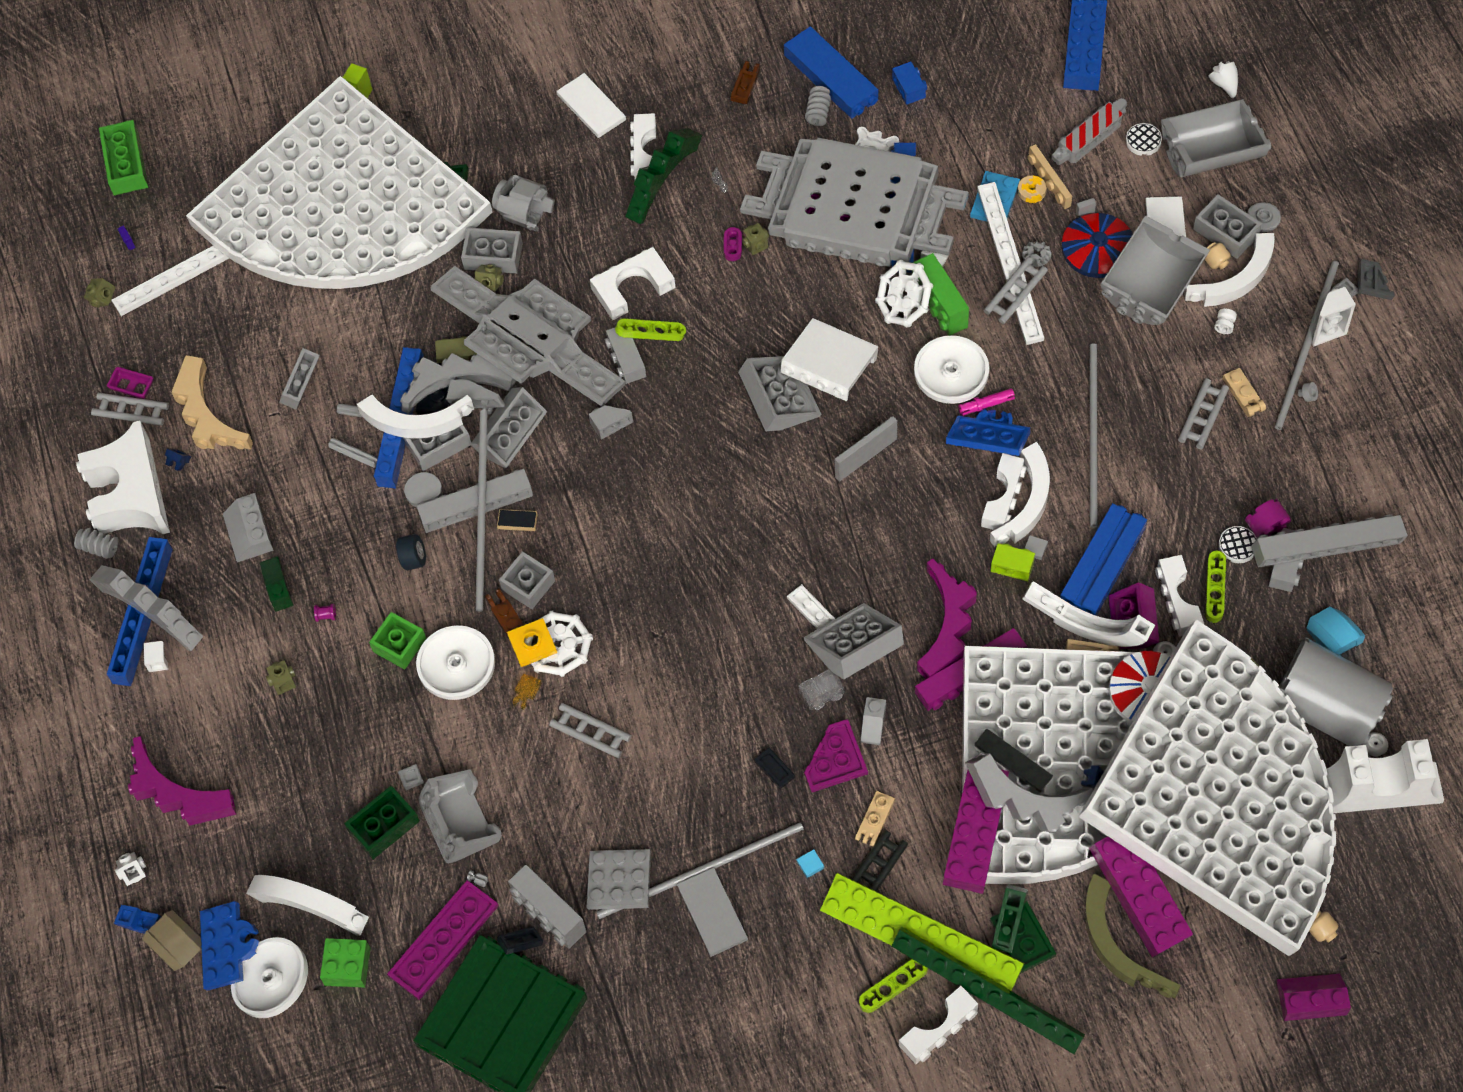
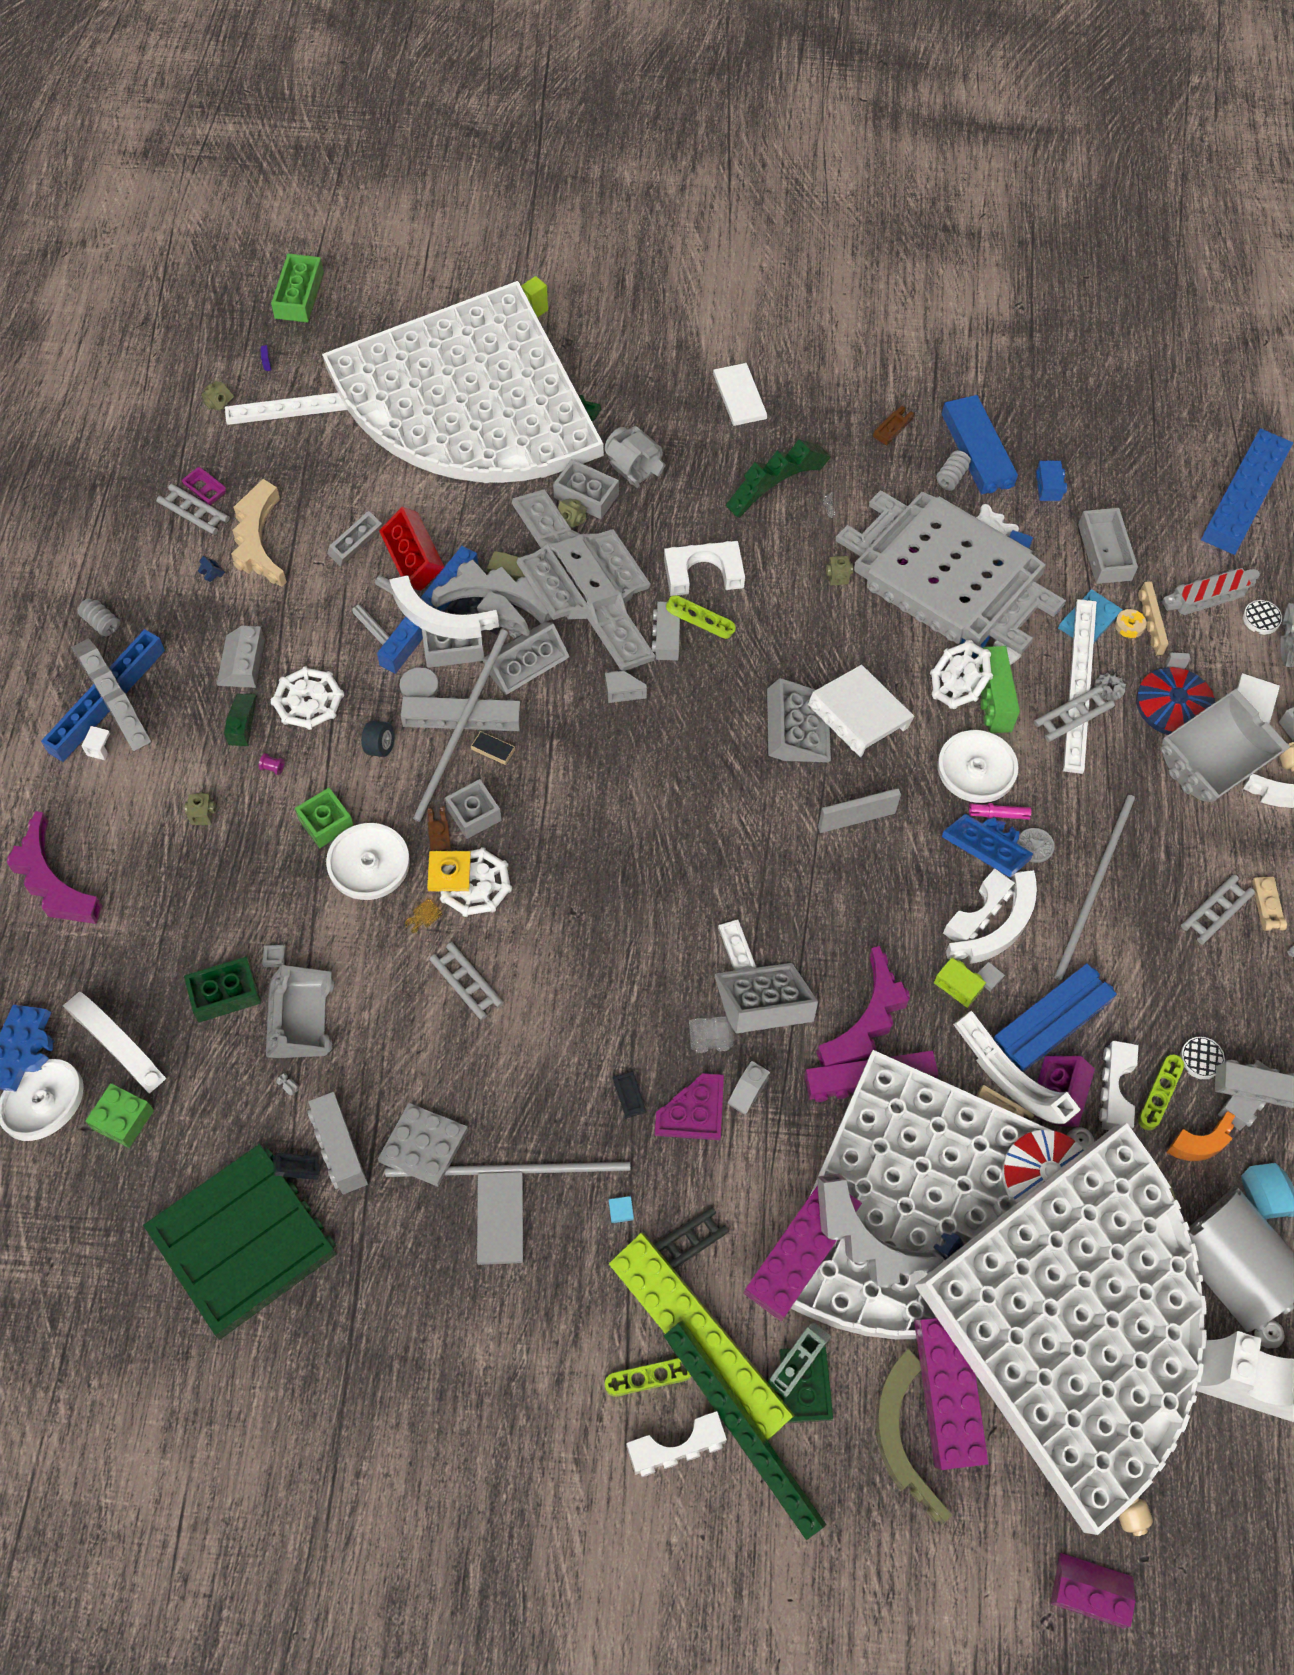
camera: 15 degrees right, 0 degrees up
(138, 495) = (163, 568): white piece -> none
(326, 531) = (307, 688): none -> white plate
(357, 367) = (411, 548): none -> red brick
(442, 940) = (224, 1133): magenta plate -> none
(644, 131) = (778, 434): white arch -> none
(732, 245) = (815, 569): magenta plate -> none
(875, 818) = (708, 1189): tan hinge -> none
(977, 113) = (1106, 531): none -> light grey piece
(1013, 760) = (873, 1192): pearl dark grey tile -> none
(1030, 416) = (1038, 843): none -> light grey wheel
(1225, 321) = (1276, 826): white wheel -> none
(1263, 619) = (1198, 1148): none -> orange arch
(1268, 518) = (1245, 1044): magenta brick -> none

